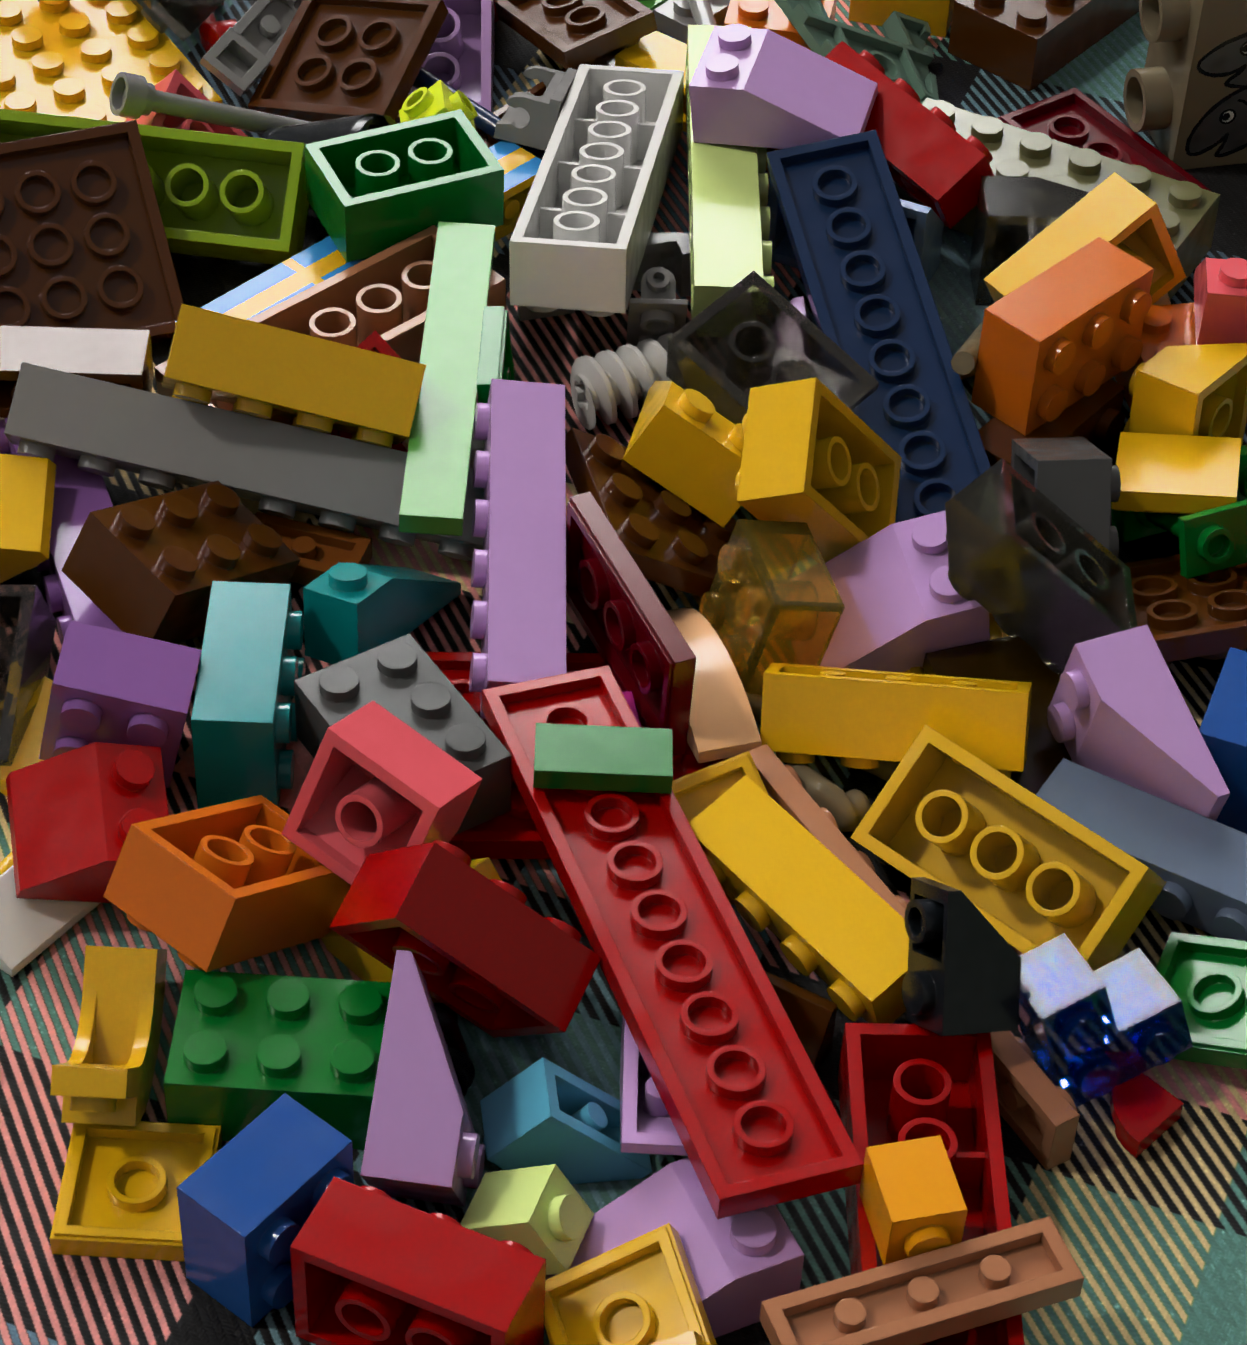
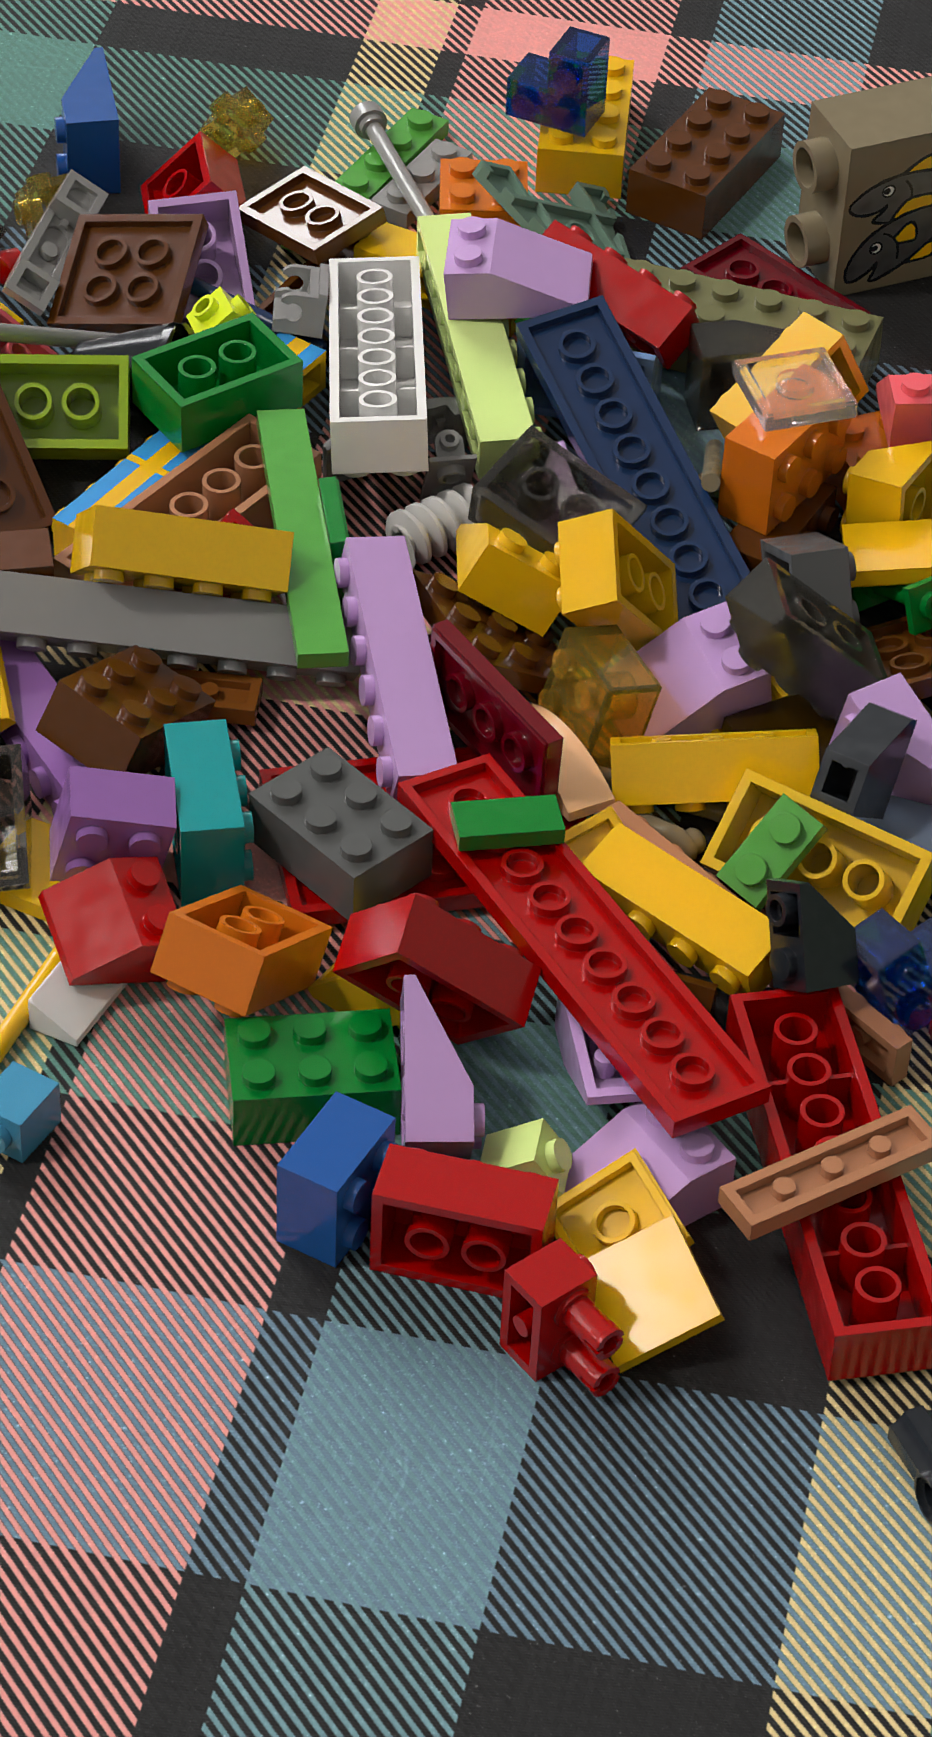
camera: 10 degrees left, 0 degrees up
(115, 1039) = (178, 1073): yellow arch -> none
(123, 1188) = (221, 1183): yellow tile -> none
(367, 606) = (280, 734): teal slope -> none
(377, 791) = (344, 868): coral slope -> none
(558, 1120) = (527, 1089): medium azure slope -> none
(911, 1198) = (809, 1104): light orange brick -> none
(941, 833) = (771, 850): none -> bright green plate
(1078, 736) = (864, 762): none -> black slope
(1082, 260) = (794, 389): none -> clear tile

